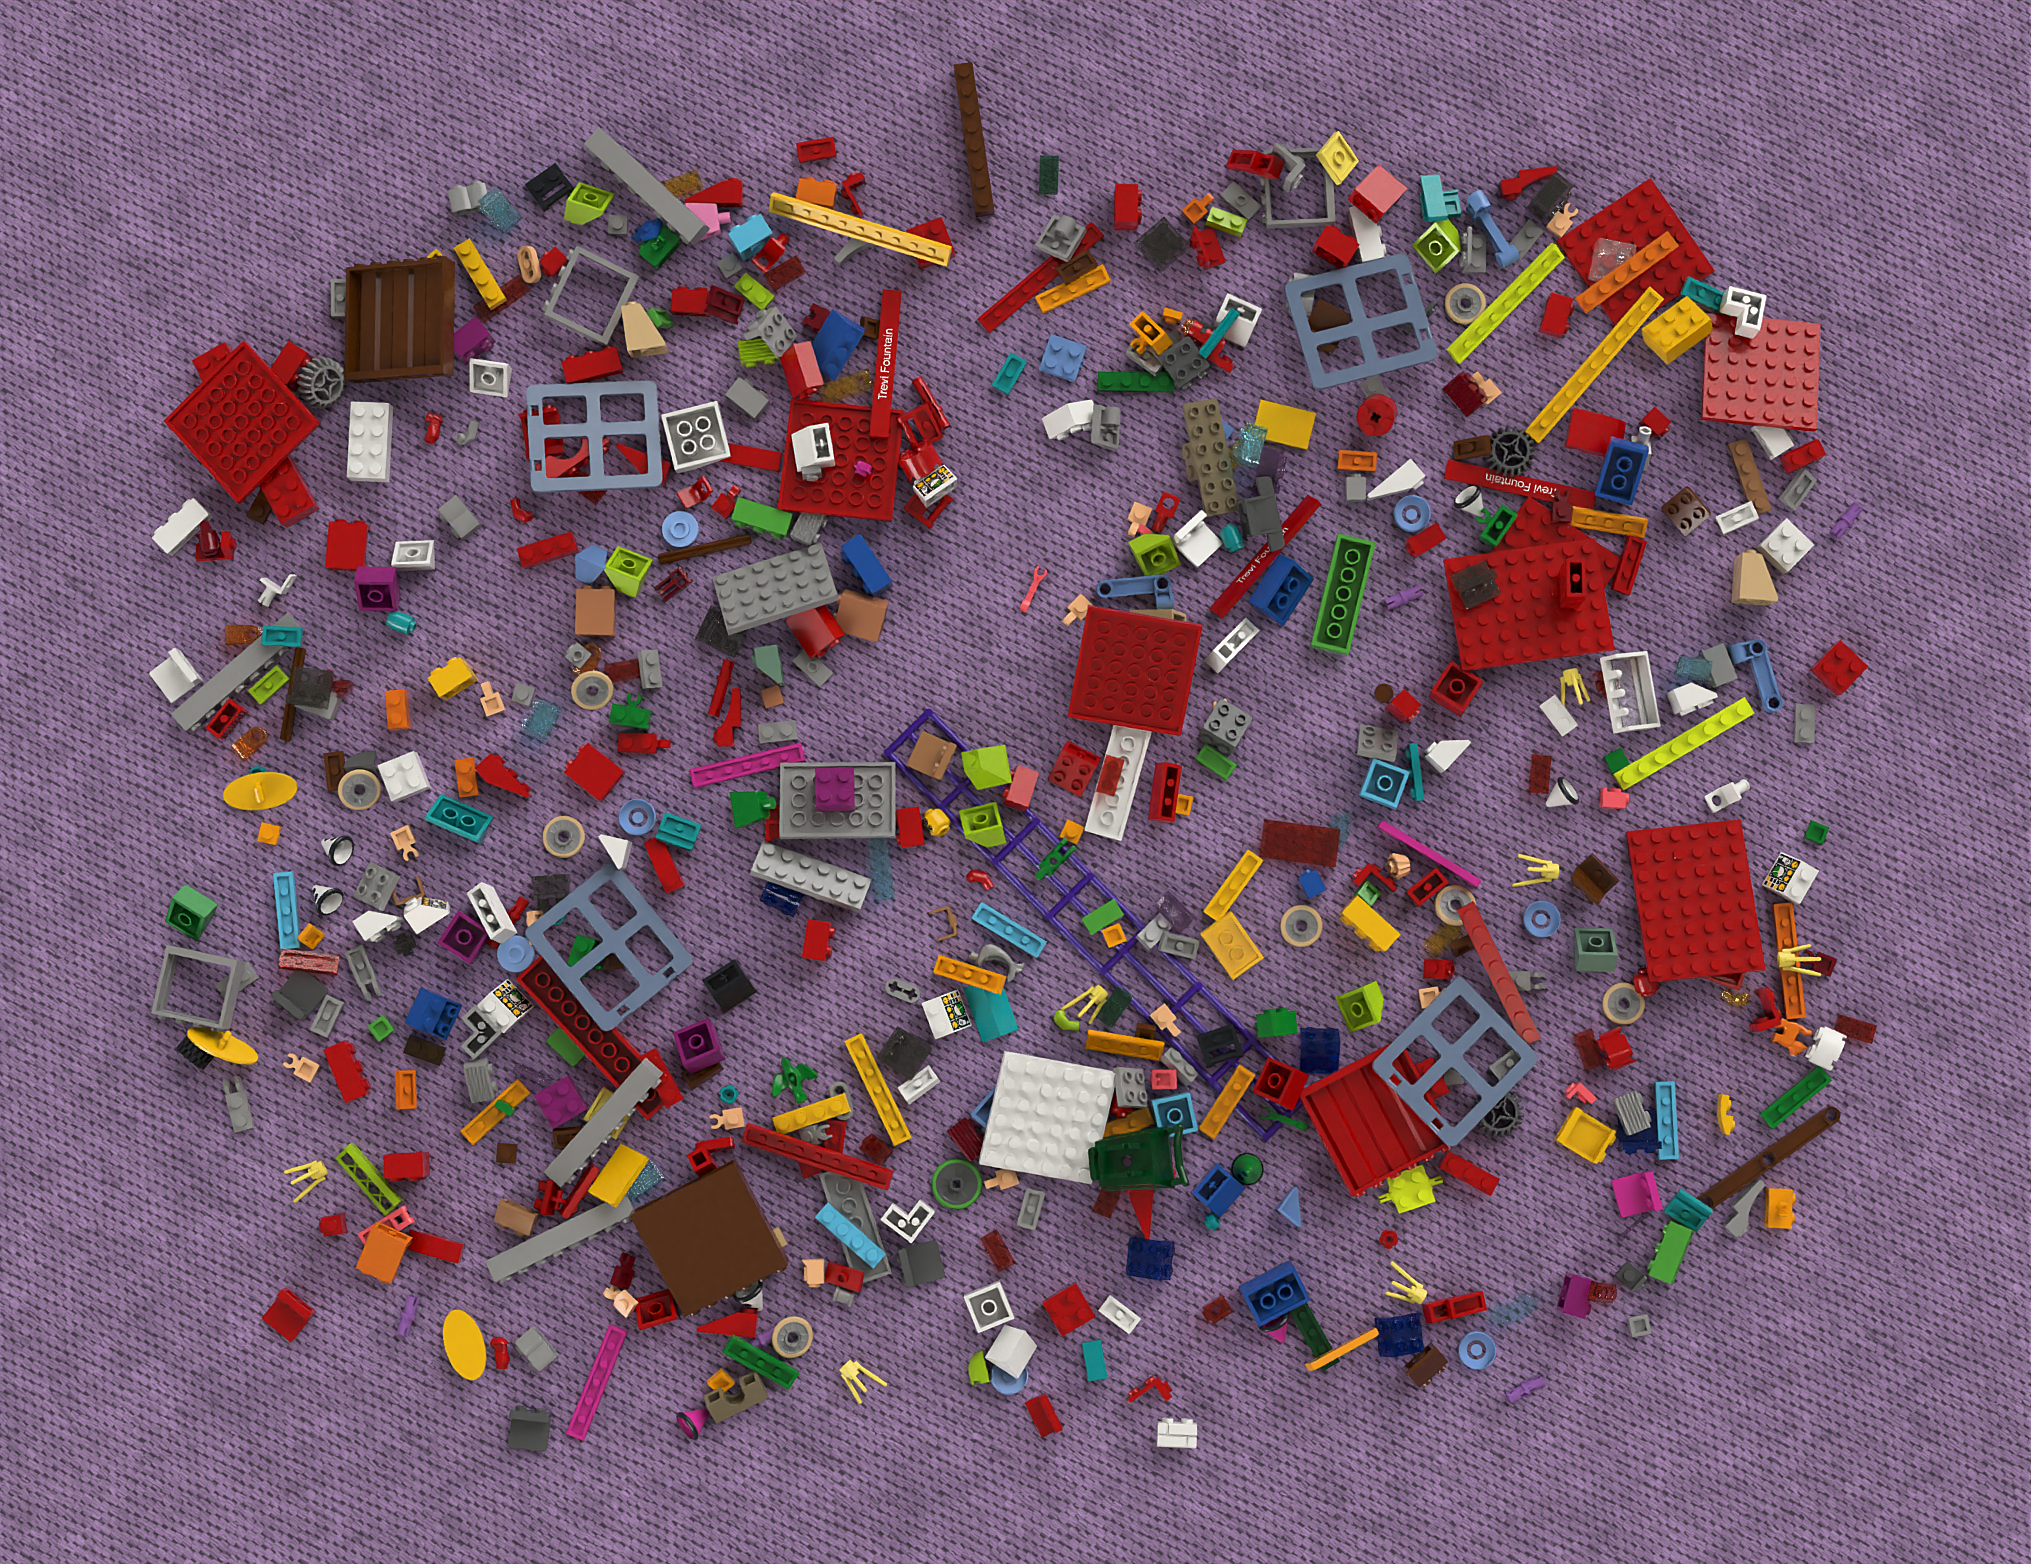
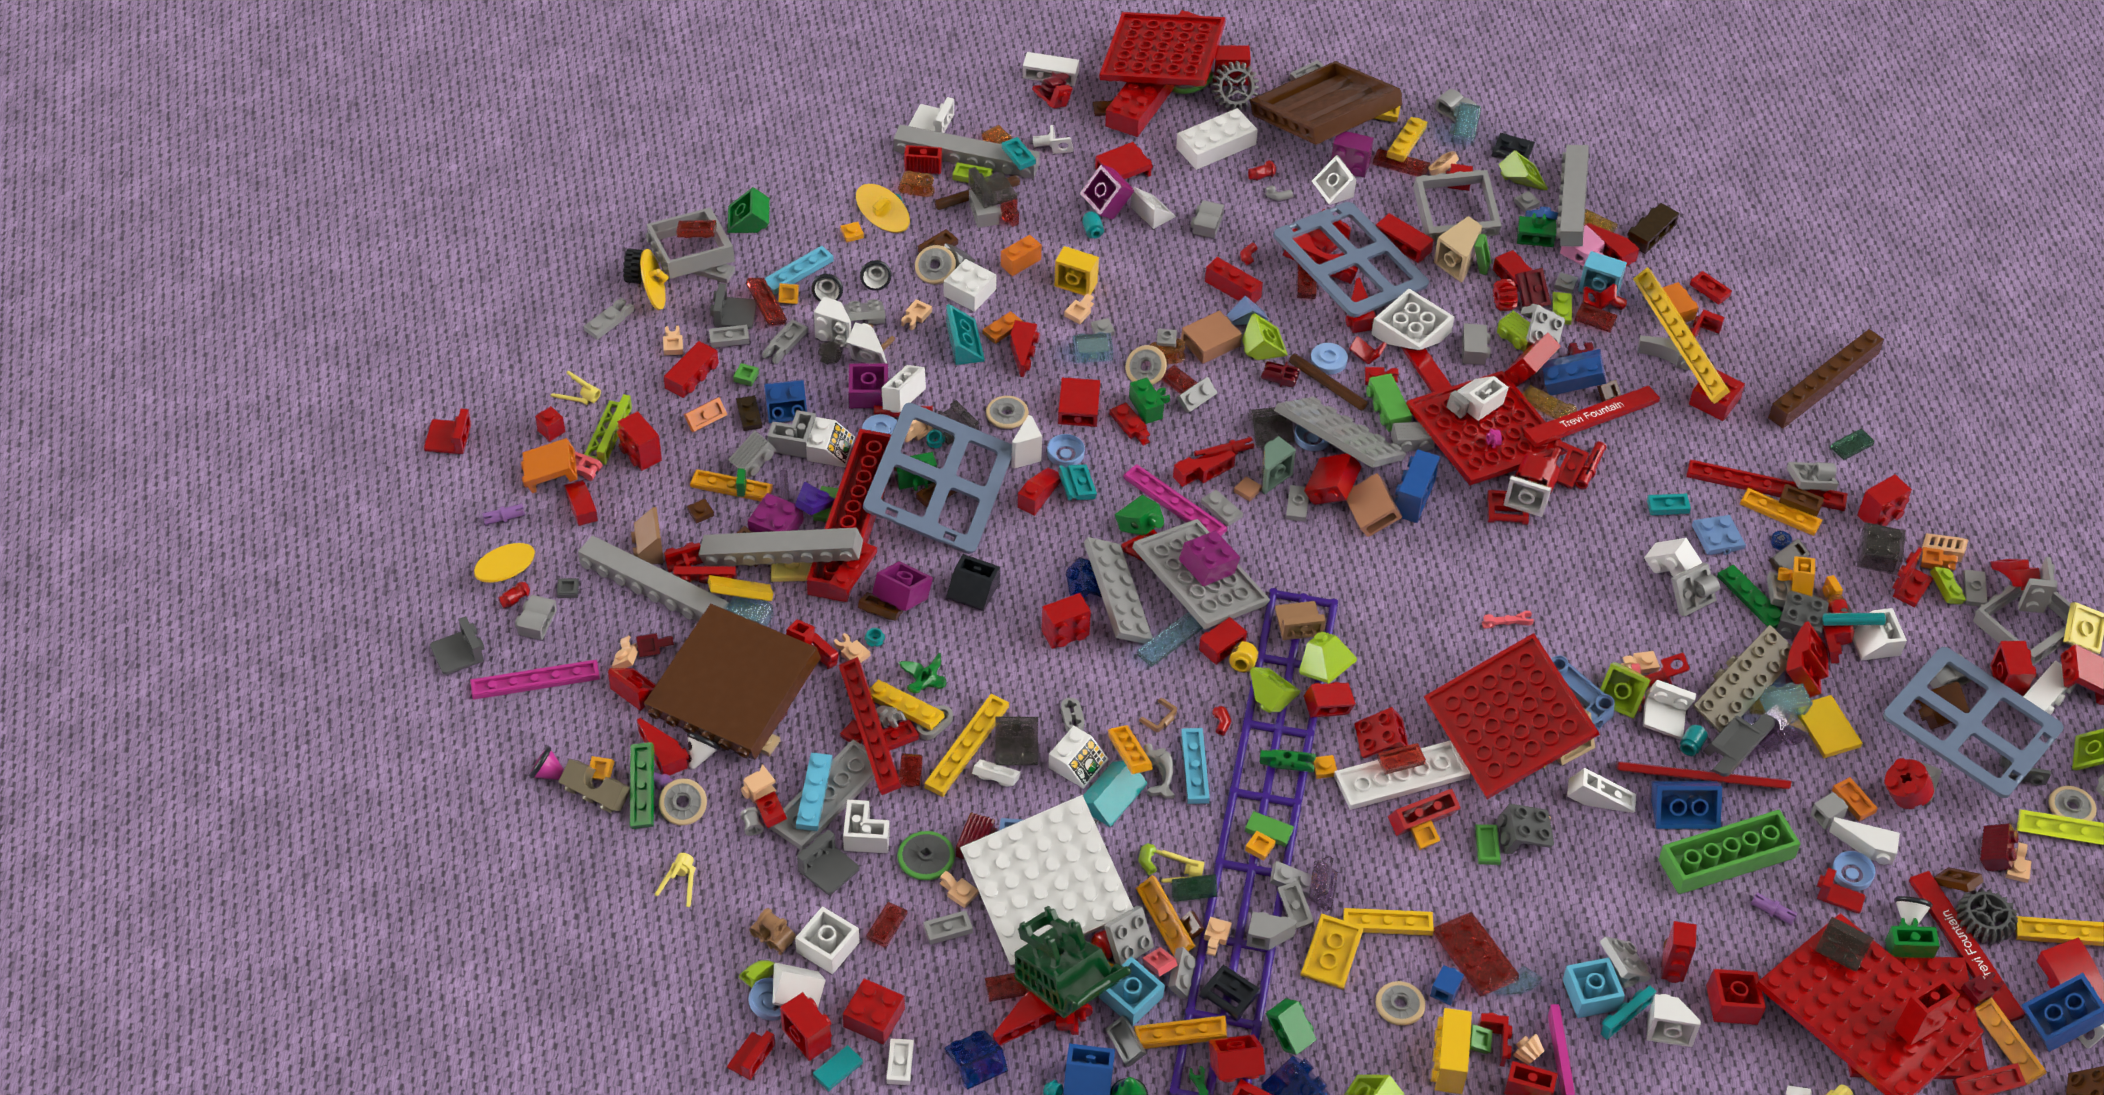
camera: 55 degrees right, 35 degrees down
(194, 978) = (696, 228): none -> clear red plate
(519, 1305) = (568, 588): none -> dark grey tile
(562, 1061) = (813, 500): none -> dark purple wing
(715, 333) = (1505, 295): none -> red gear
(721, 144) = (1653, 227): none -> dark brown brick
(953, 1340) = (772, 931): none -> medium nougat piece
(1054, 1367) = (806, 1026): none -> red brick
(1099, 312) = (1780, 540): none -> clear blue tile
(1119, 321) = (1786, 556): none -> tile
(1190, 982) = (1269, 930): none -> light grey slope
(1205, 186) = (1956, 544): none -> light nougat slope
(1206, 1144) = (1126, 1041): none -> dark grey tile
(1227, 396) = (1808, 660): none -> red slope

